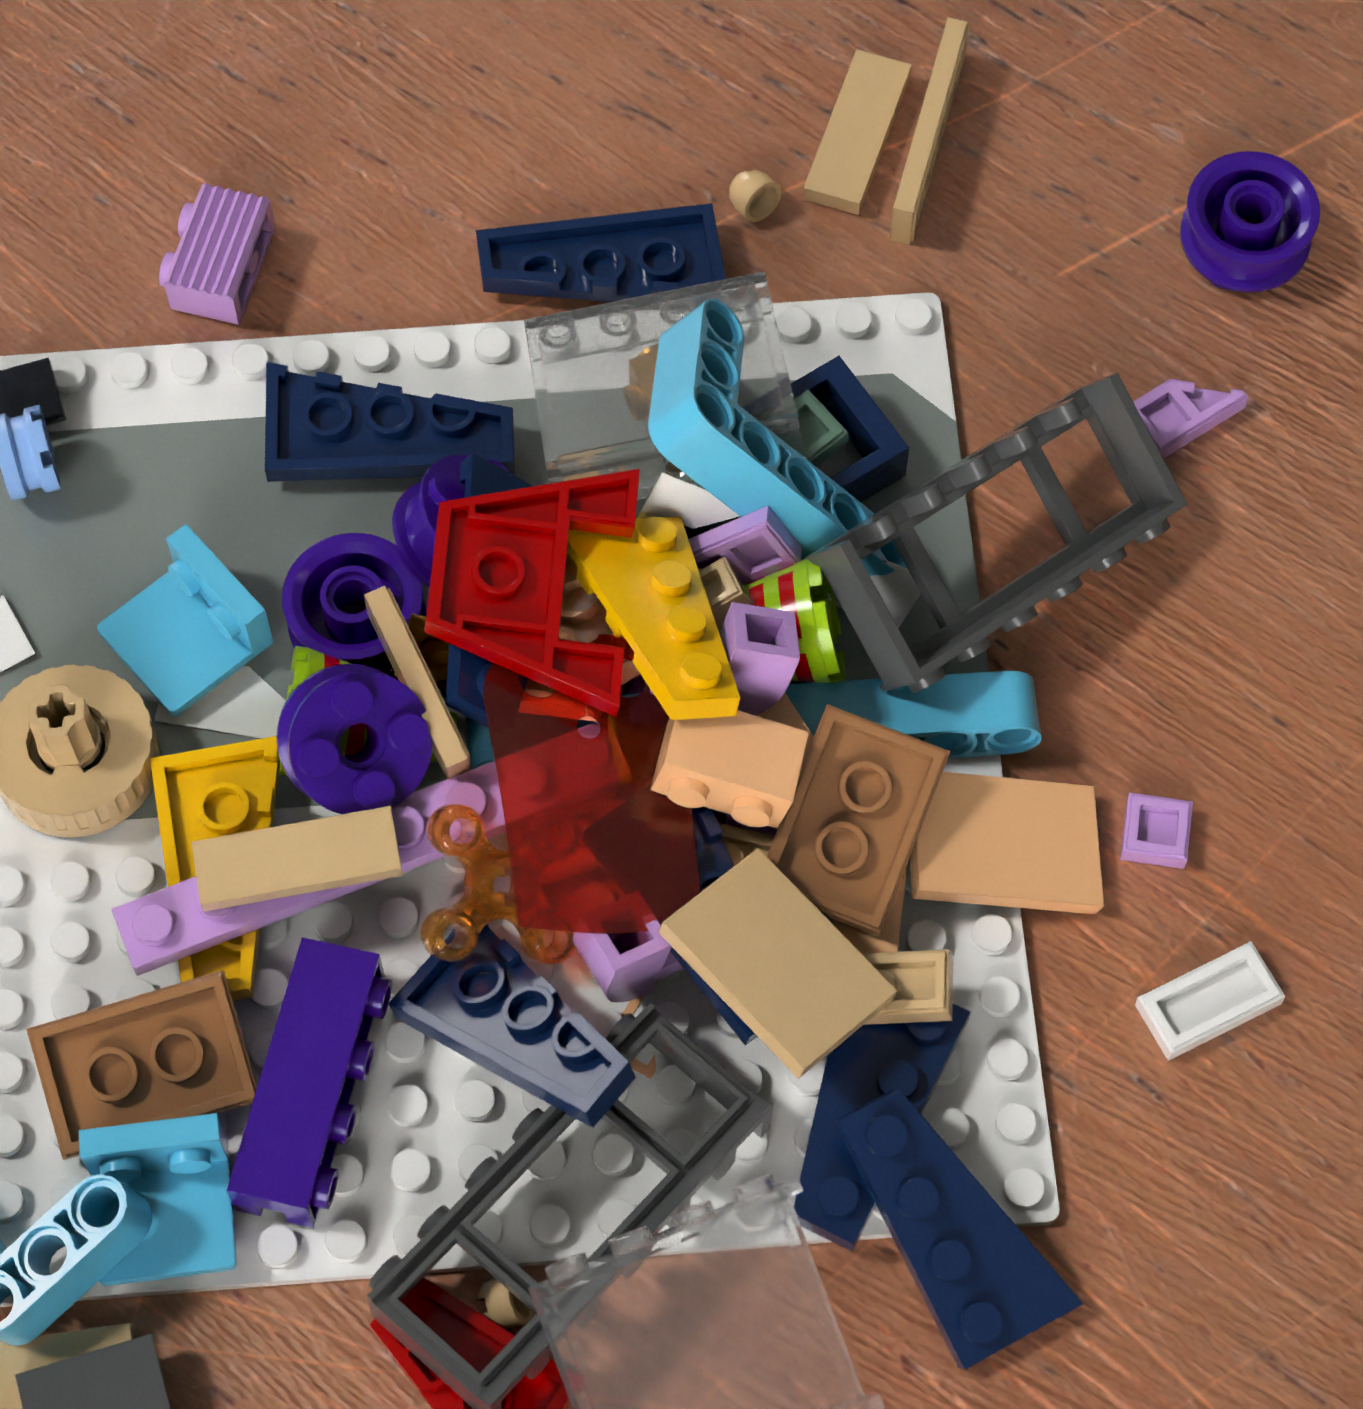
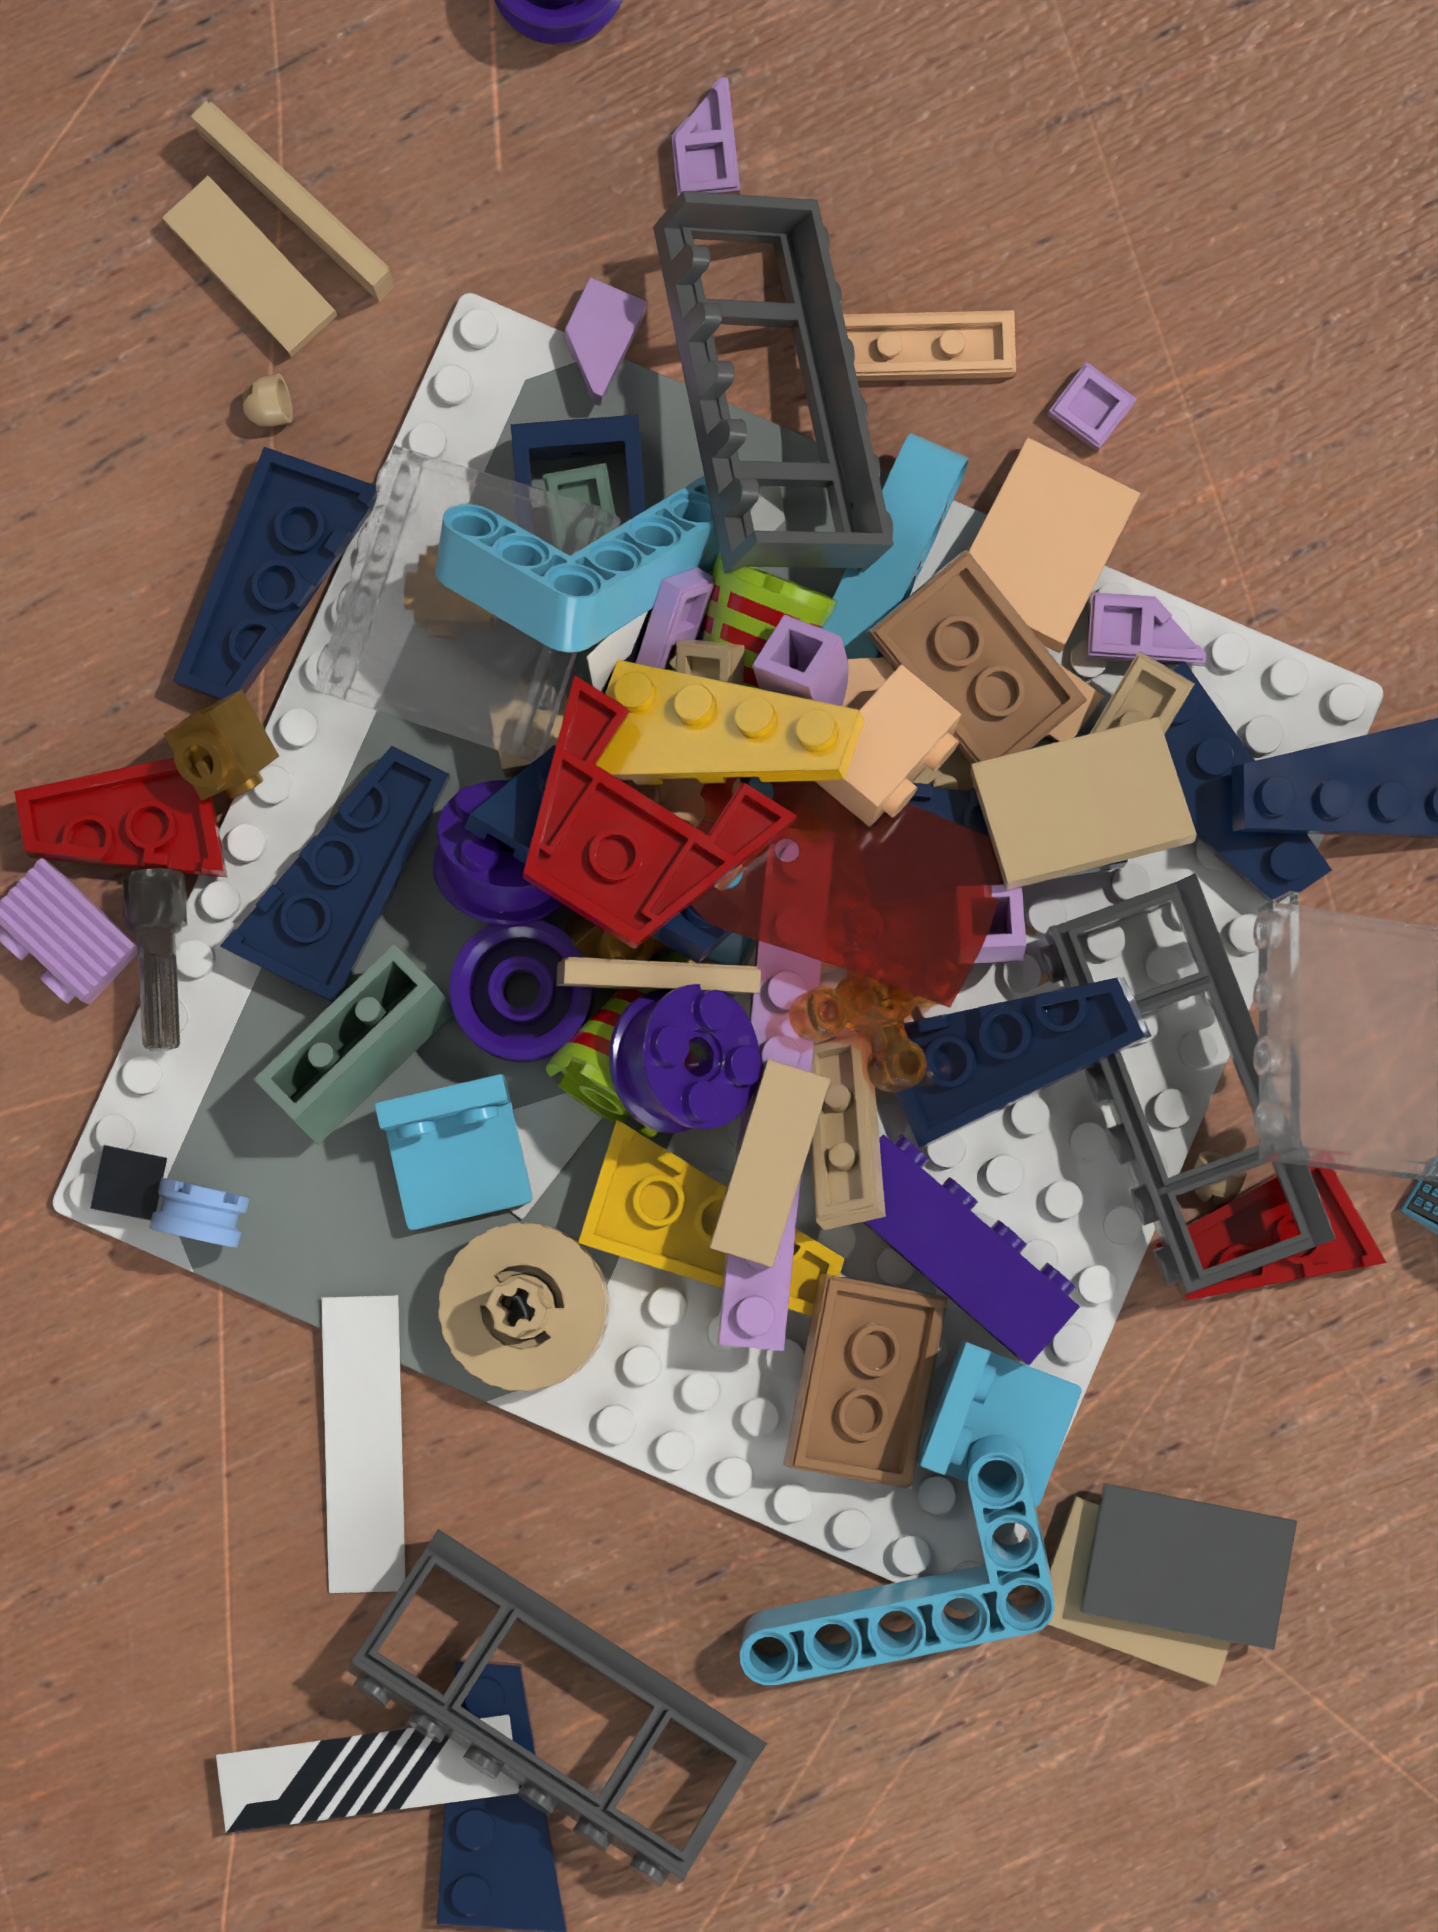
camera: 60 degrees left, 20 degrees up
(232, 496) = (355, 1044): none -> sand green brick
(269, 309) = (155, 913): none -> clear smoke piece
(342, 255) = (124, 819): none -> red wing
(358, 922) = (846, 1136): none -> tan tile
(437, 283) = (222, 747): none -> pearl gold brick
(966, 407) = (602, 333): none -> lavender tile
(979, 961) = (1134, 623): none -> lavender tile
(1121, 665) = (933, 345): none -> light nougat tile
(1209, 1000) = (1265, 453): white tile -> none

